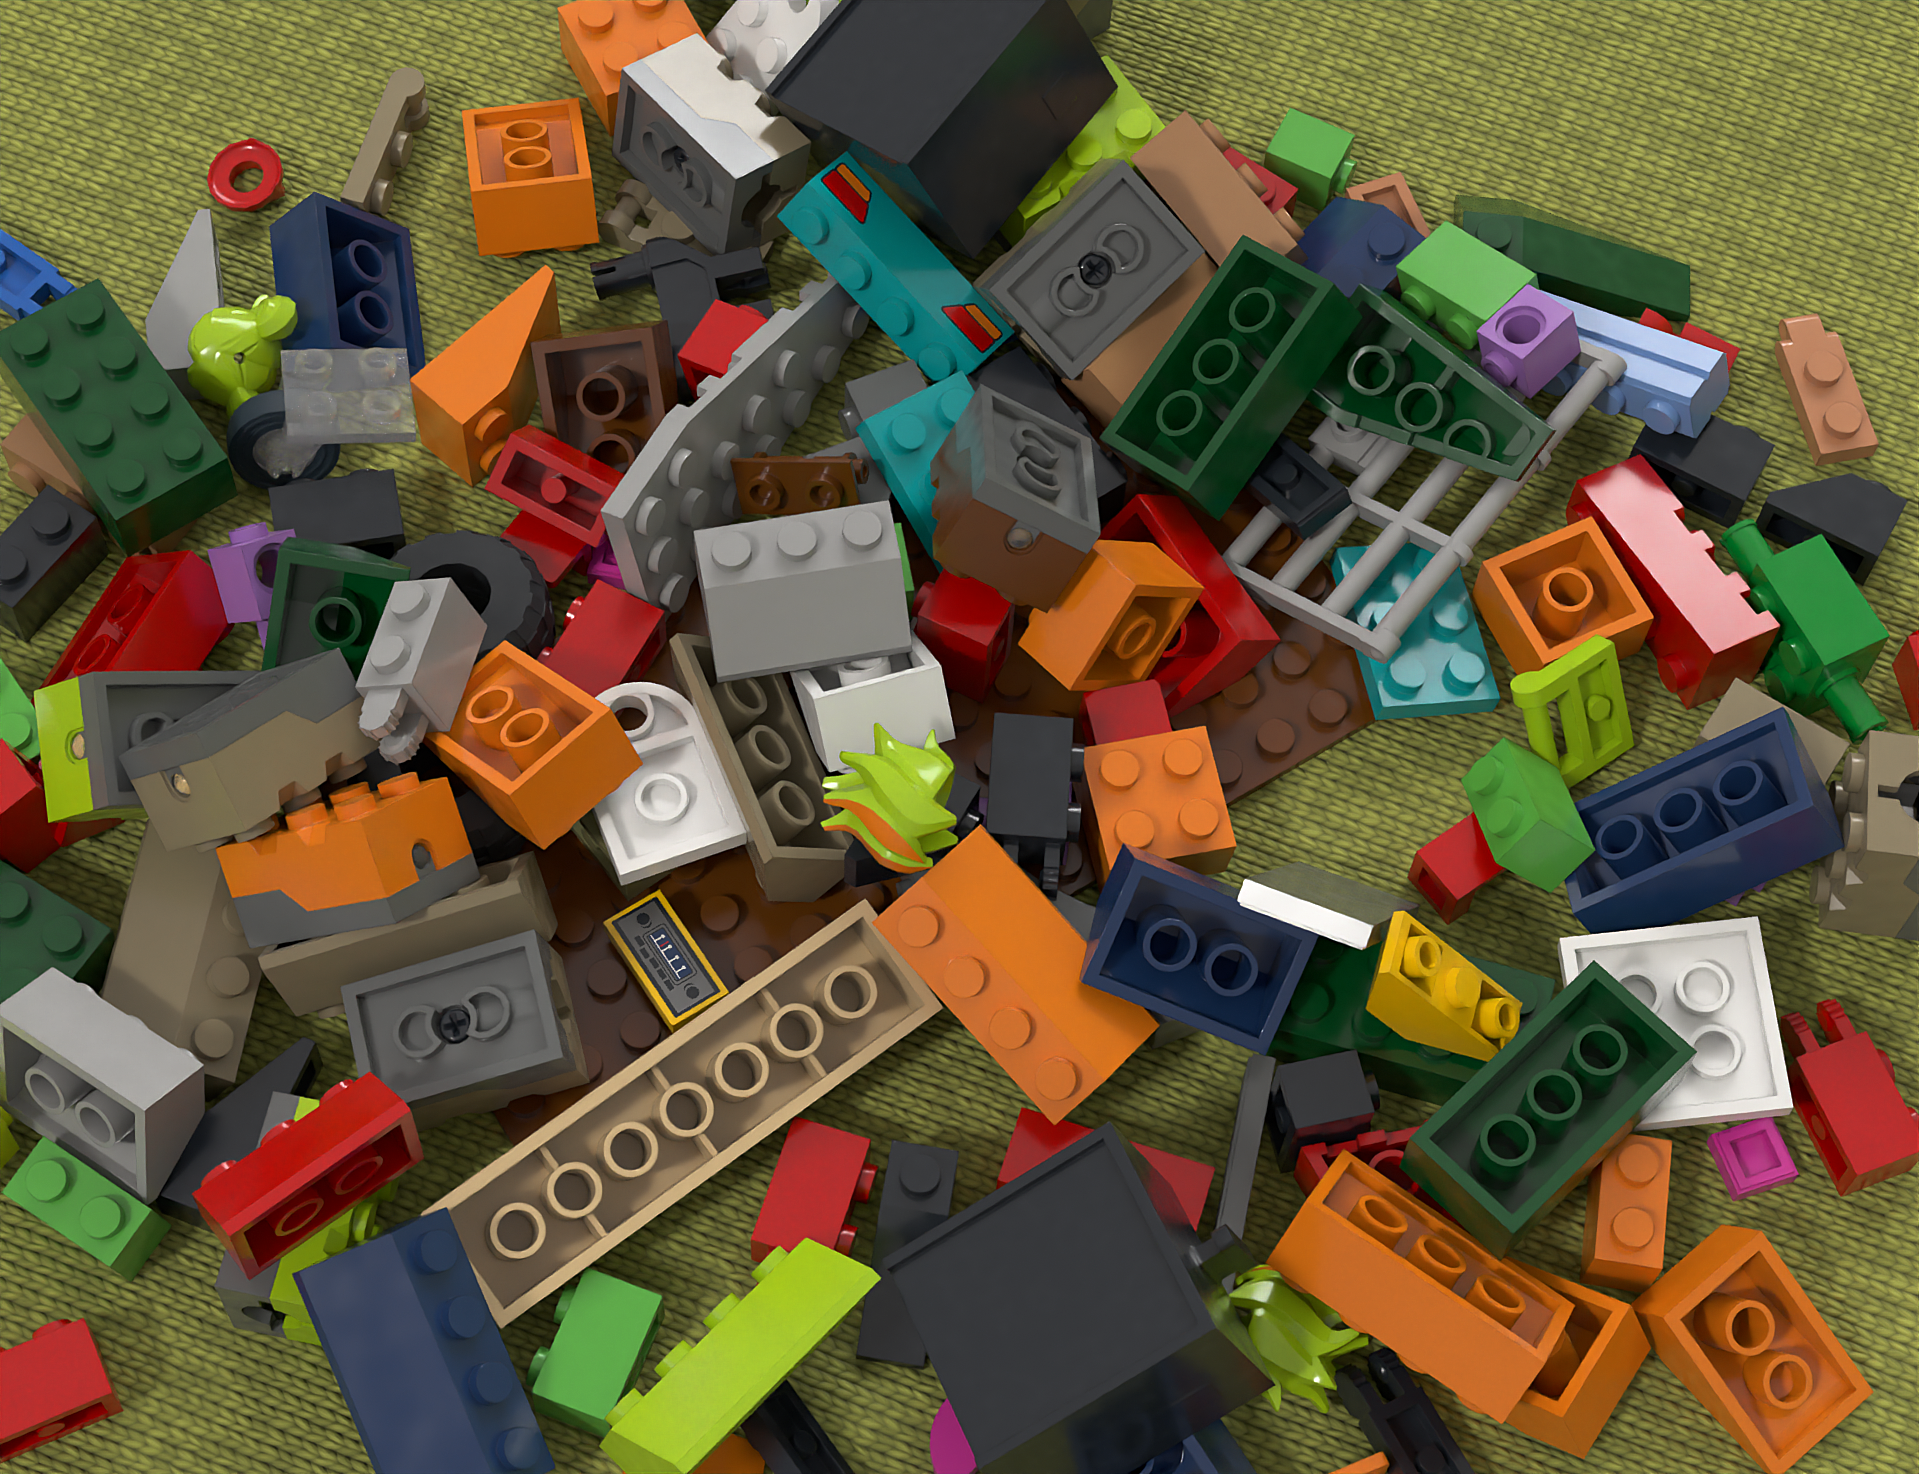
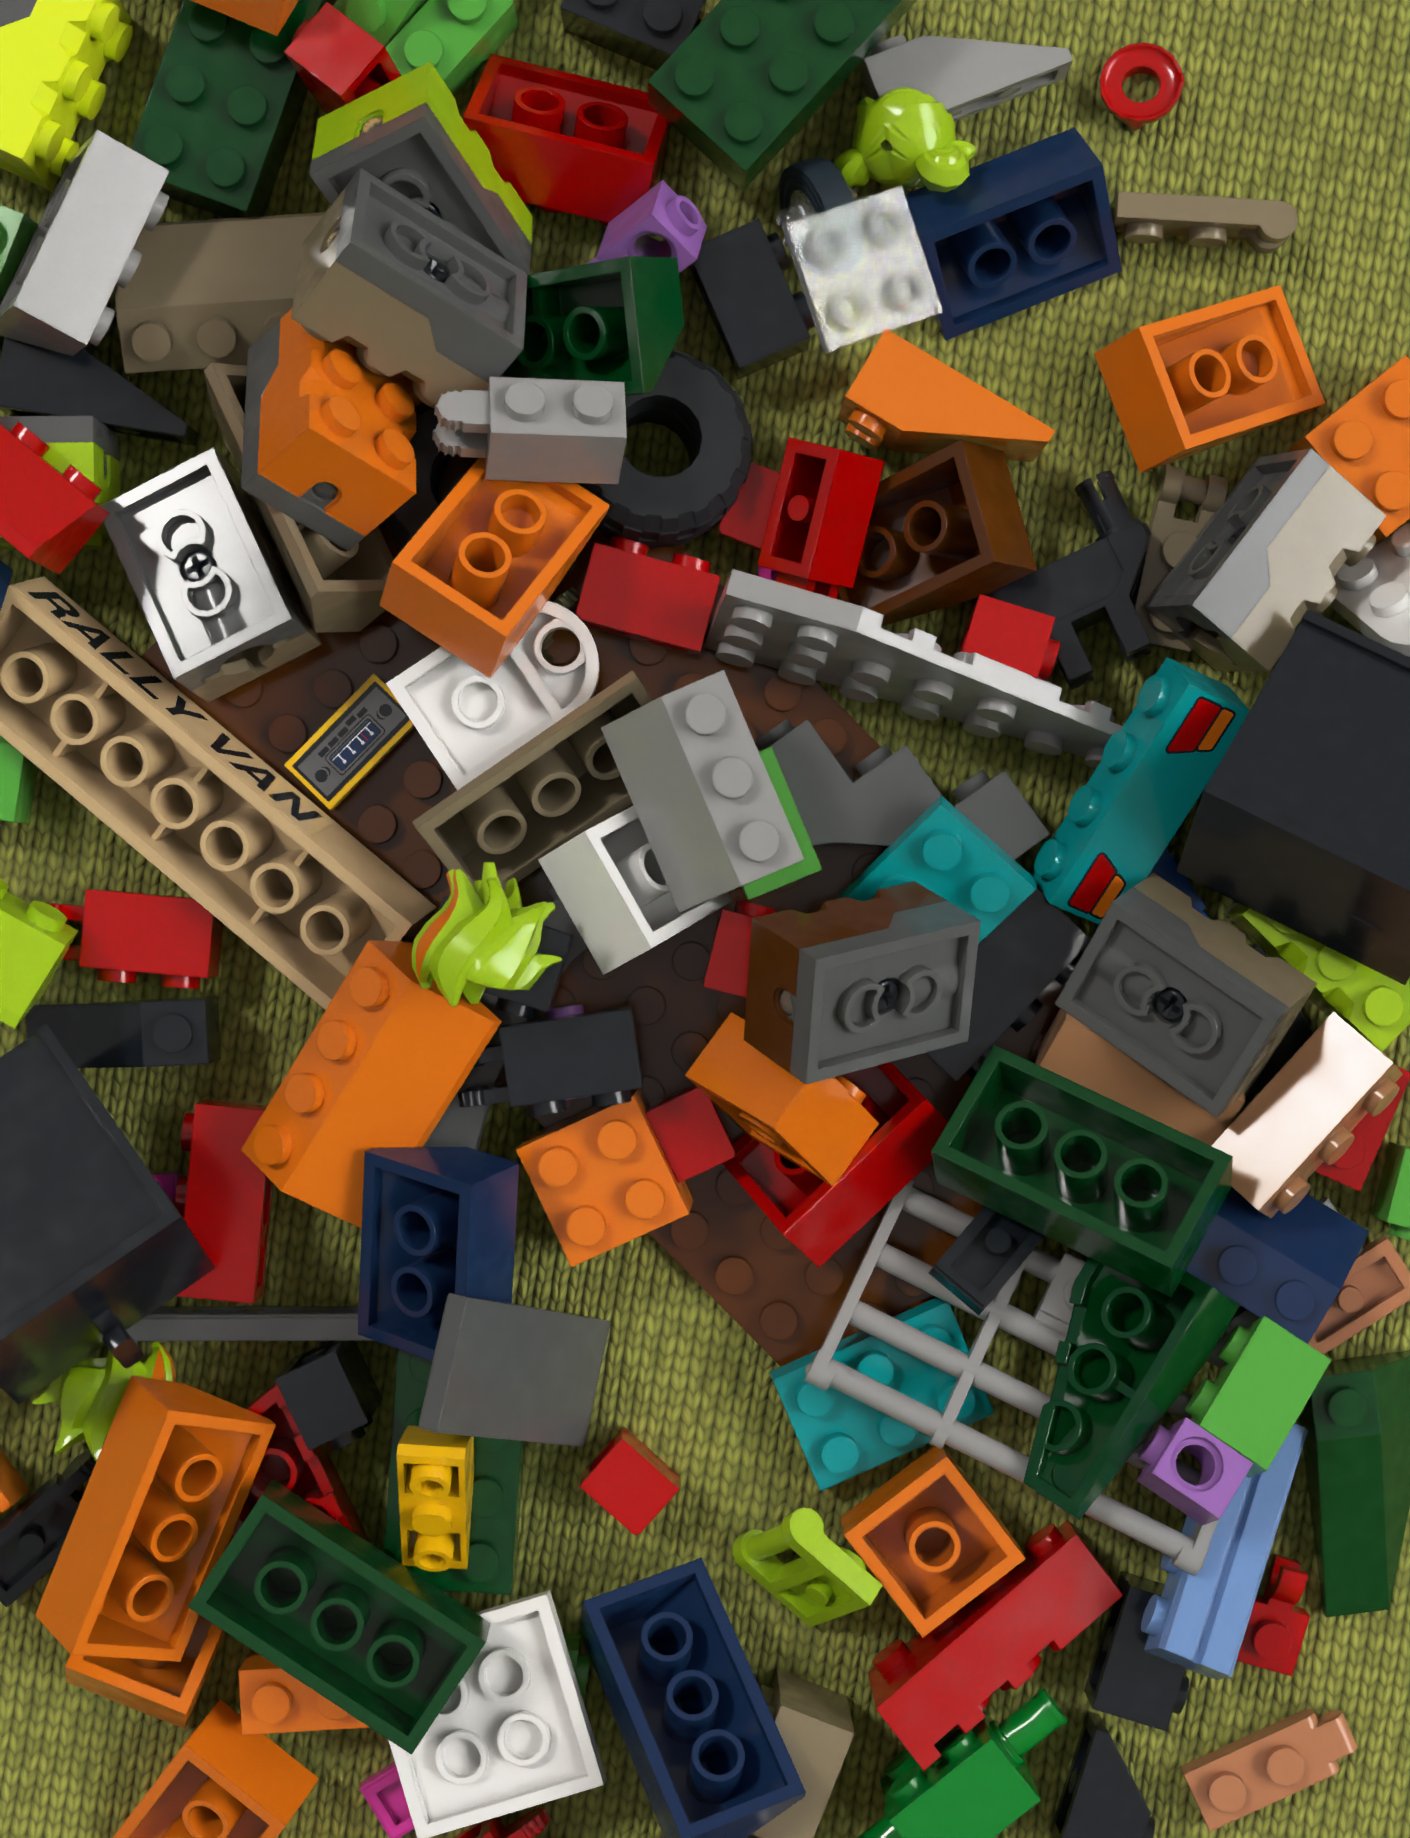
camera: 80 degrees right, 25 degrees up
(798, 484) = (866, 725): reddish brown hinge -> none
(1527, 815) = (680, 1541): bright green brick -> none

